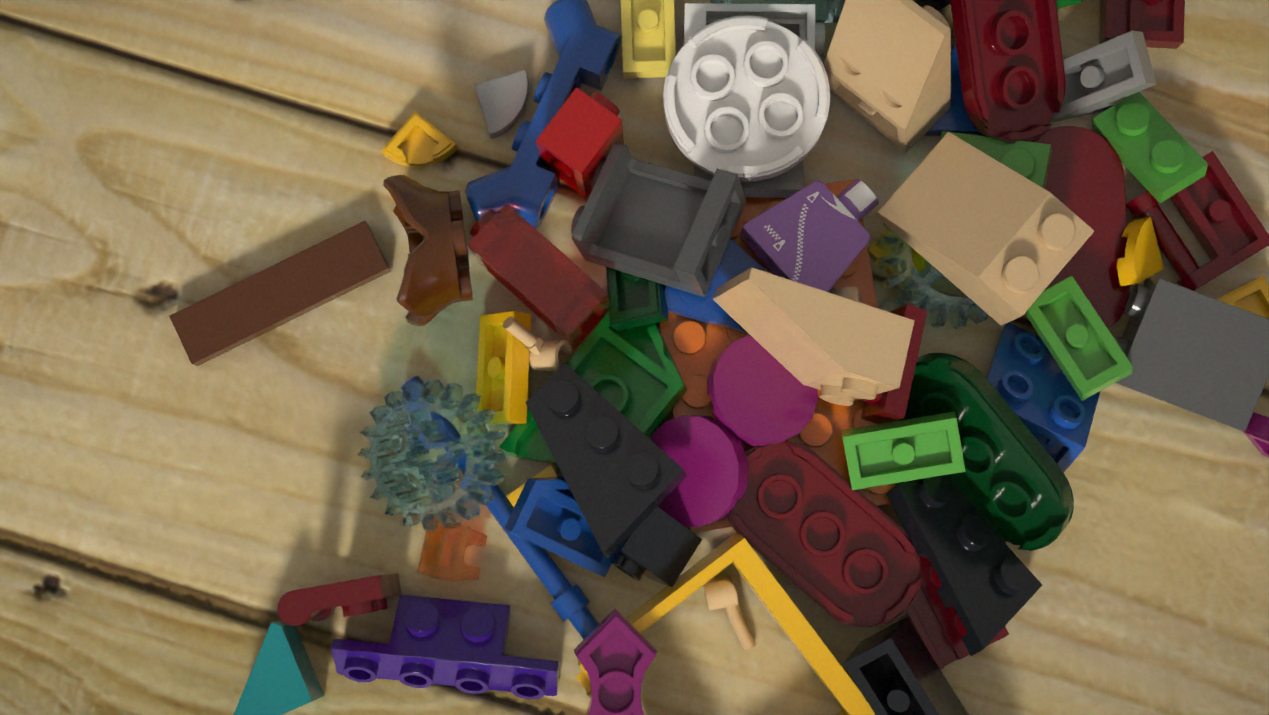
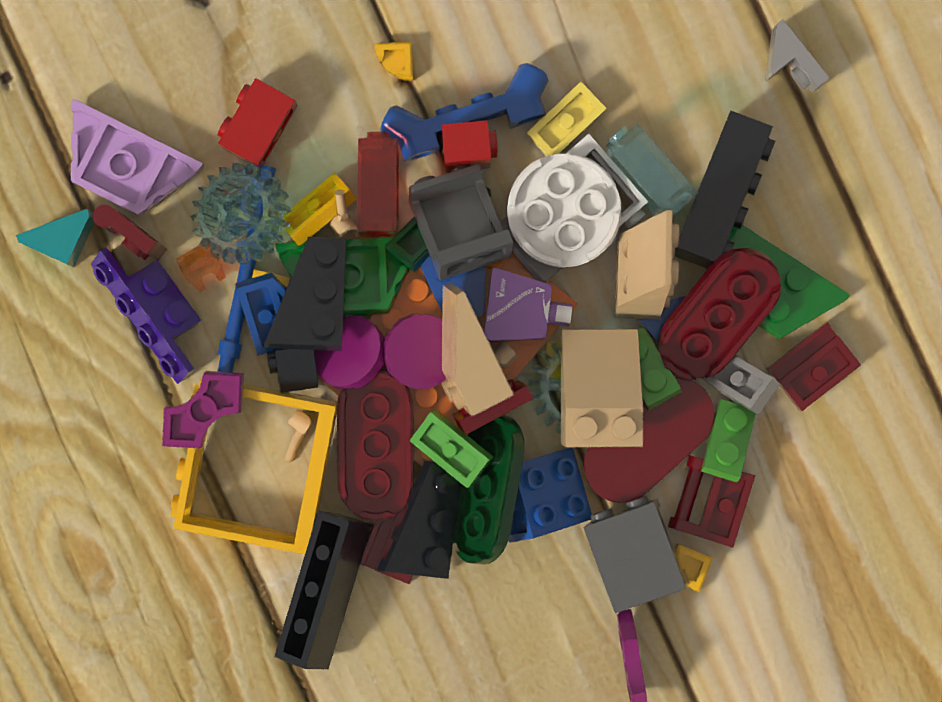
camera: 40 degrees right, 5 degrees up
(260, 534) = (124, 162): none -> lavender wing
(280, 293) = (255, 59): reddish brown tile -> none
(349, 350) = (256, 123): none -> red brick
(438, 256) = (345, 120): reddish brown brick -> none
(503, 101) = (457, 82): light grey tile -> none
(1078, 339) = (588, 487): bright green plate -> none
(1141, 253) = (667, 484): yellow tile -> none

